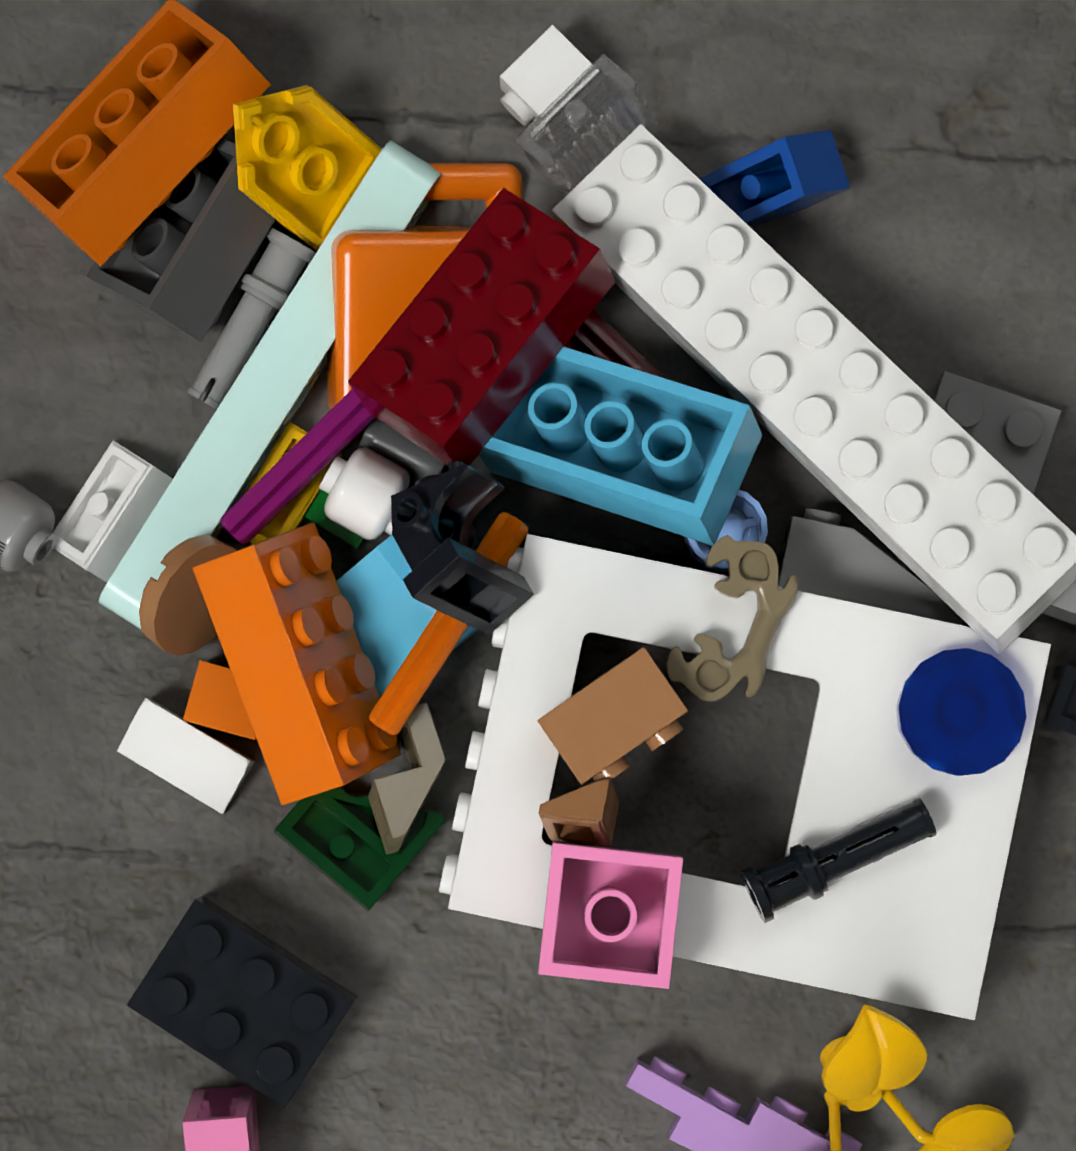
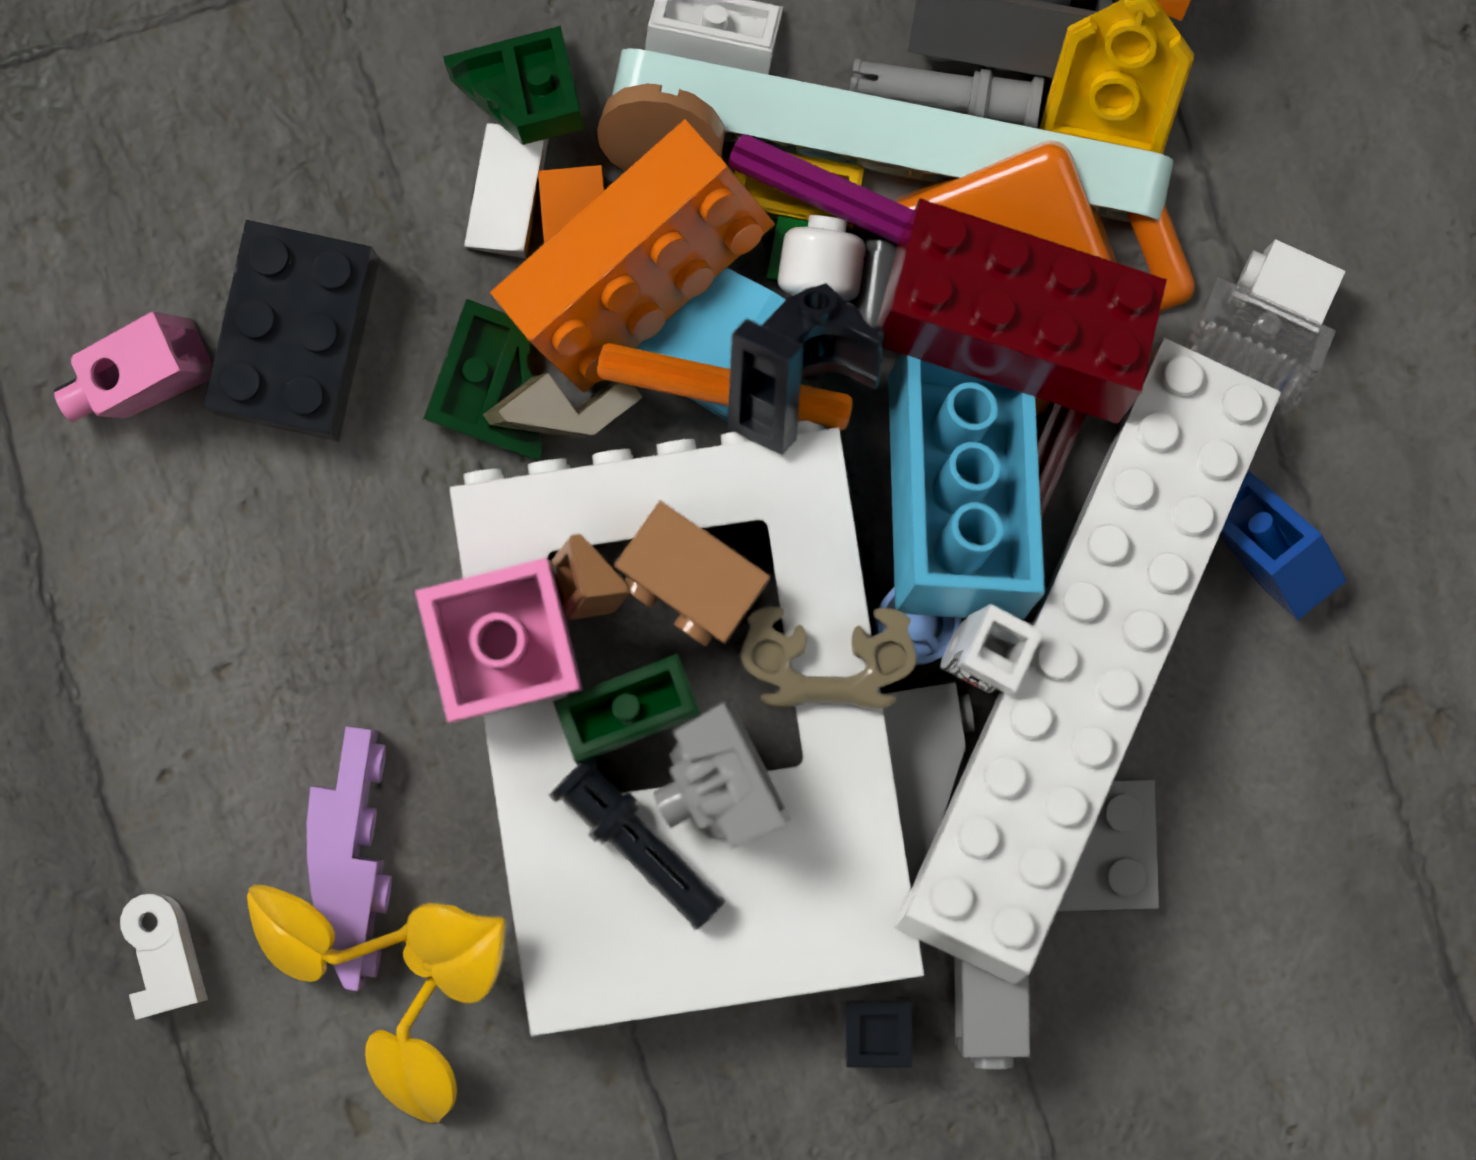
camera: 70 degrees right, 0 degrees up
(96, 705) = (522, 84): none -> dark green wing
(714, 822) = (626, 708): none -> dark green slope
(782, 472) = (991, 650): none -> white leg
(813, 760) = (720, 780): none -> light grey brick
(961, 712) = (824, 911): clear blue tile -> none

